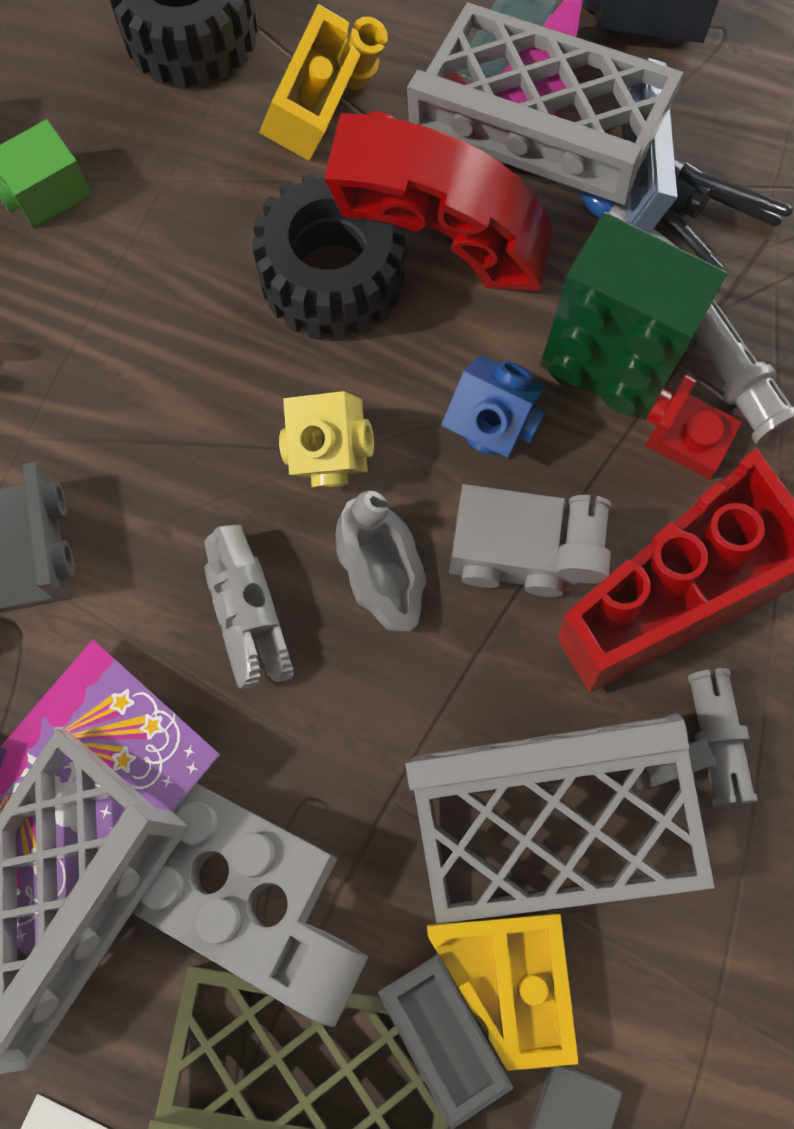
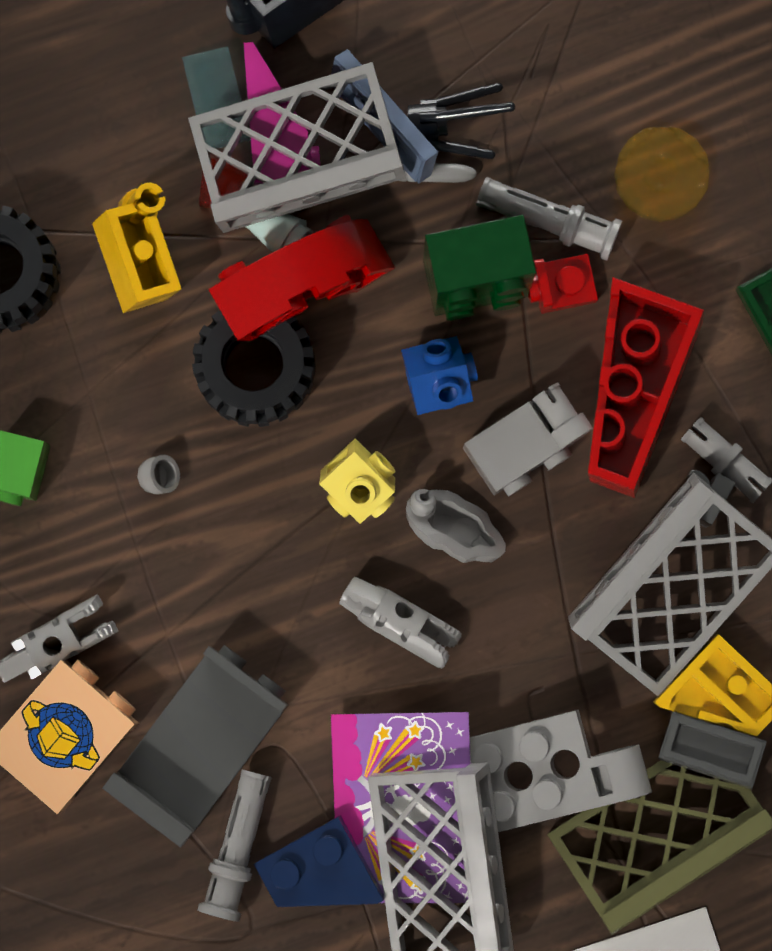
camera: 40 degrees left, 10 degrees up
(161, 293) = (159, 474): none -> light grey hinge

